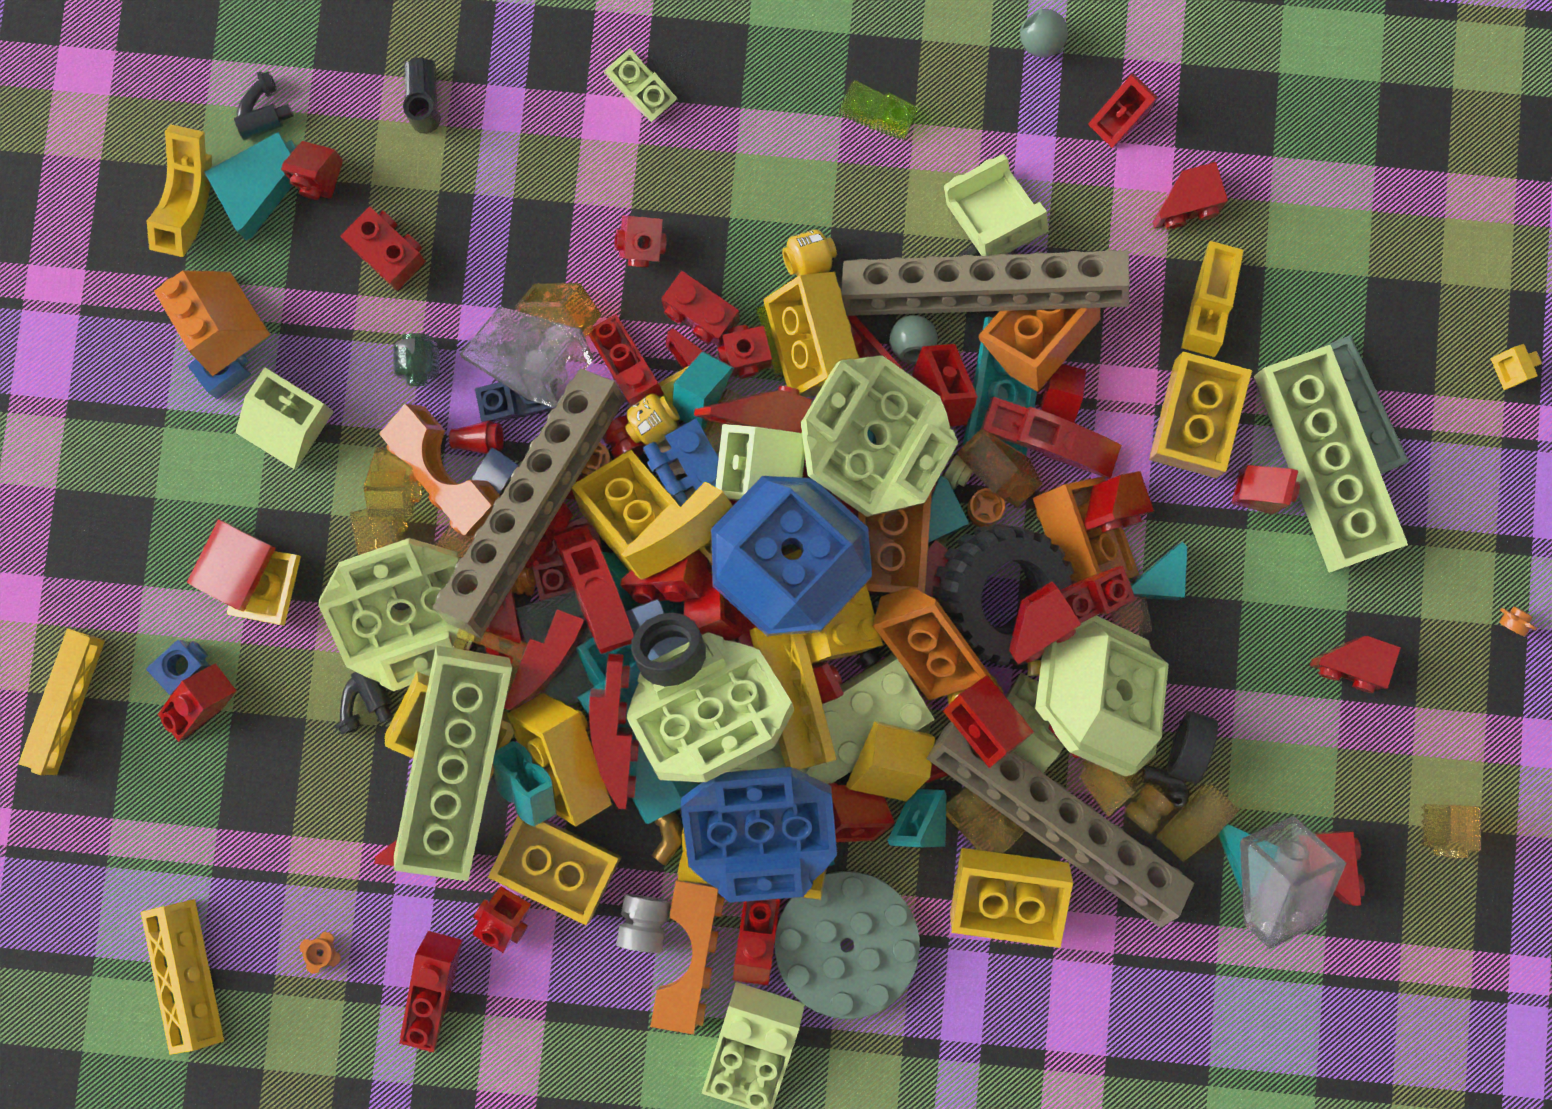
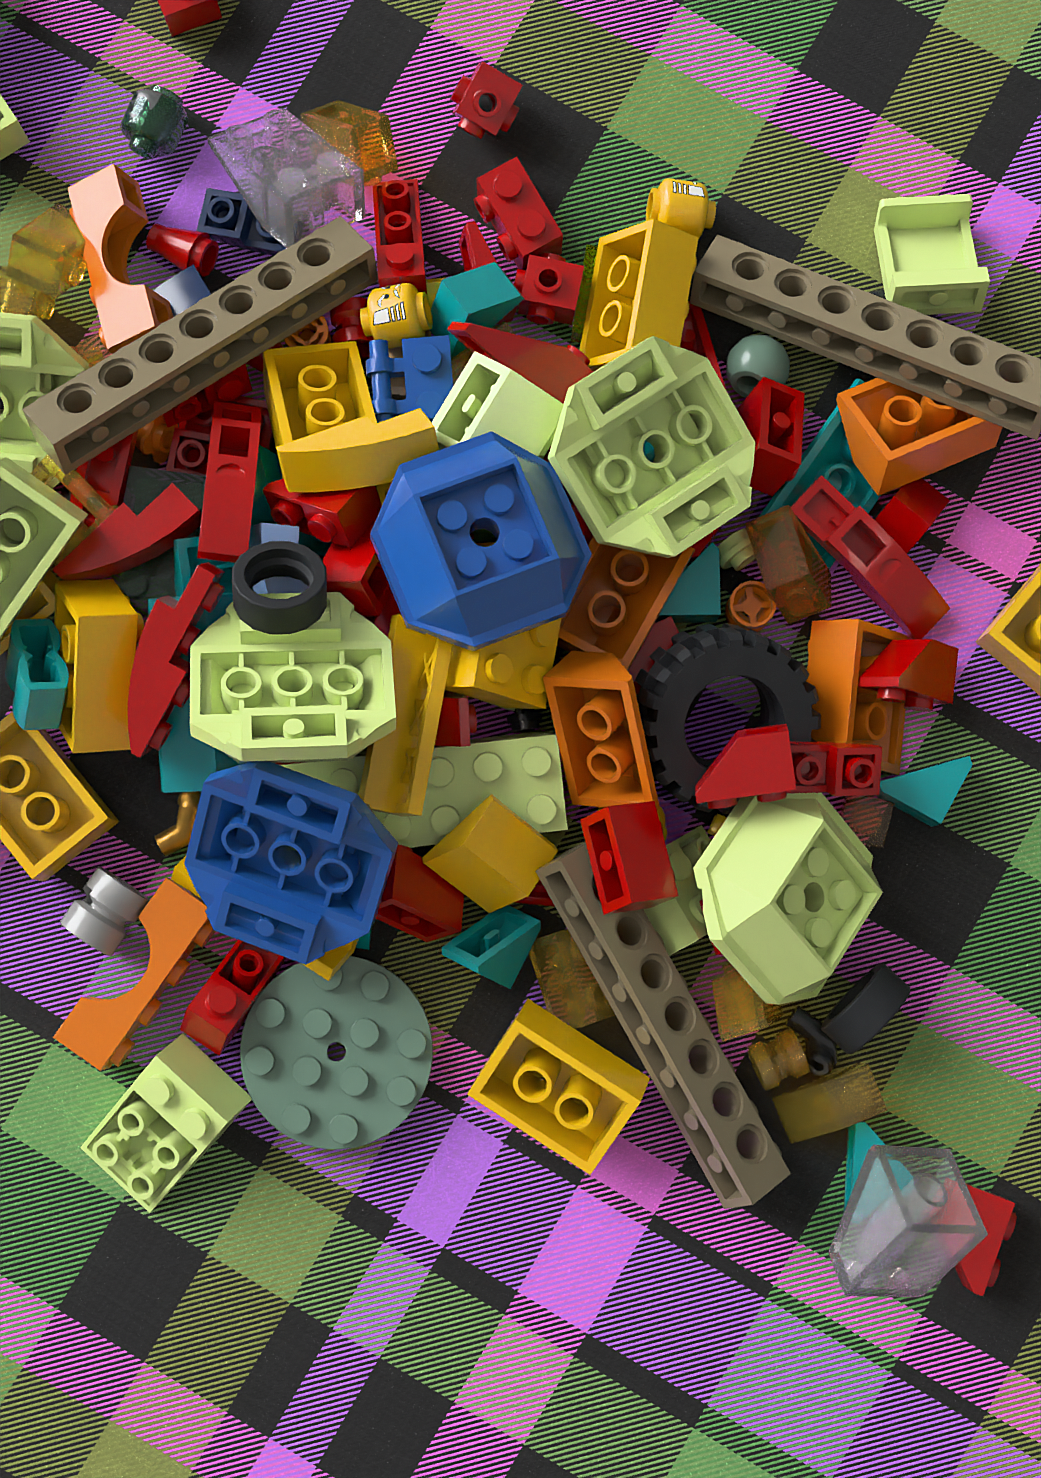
camera: 20 degrees right, 0 degrees up
(878, 111) = (842, 81): clear neon green slope -> none

